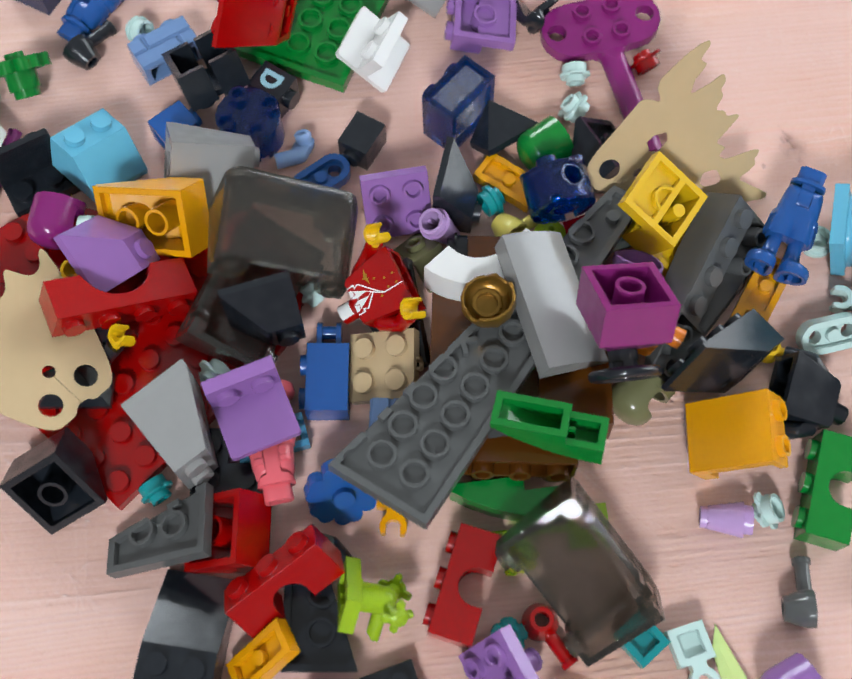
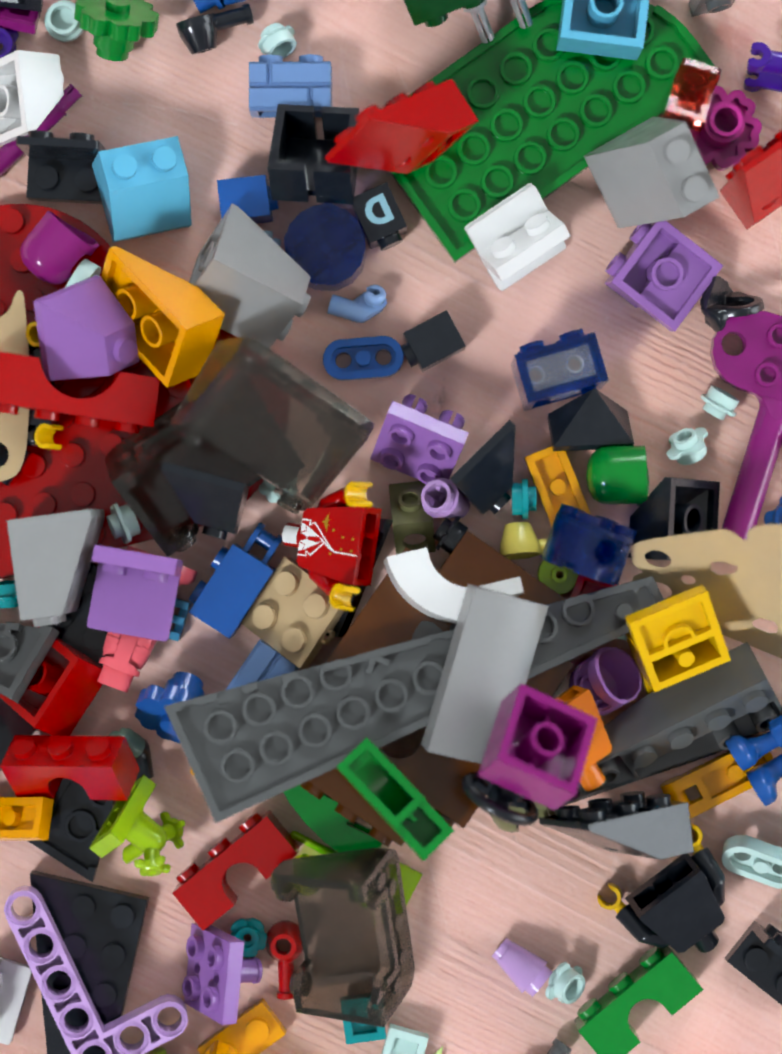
camera: 35 degrees right, 20 degrees up
(488, 300) = (421, 639): pearl gold hair -> none
(737, 433) = (581, 906): light orange panel -> none

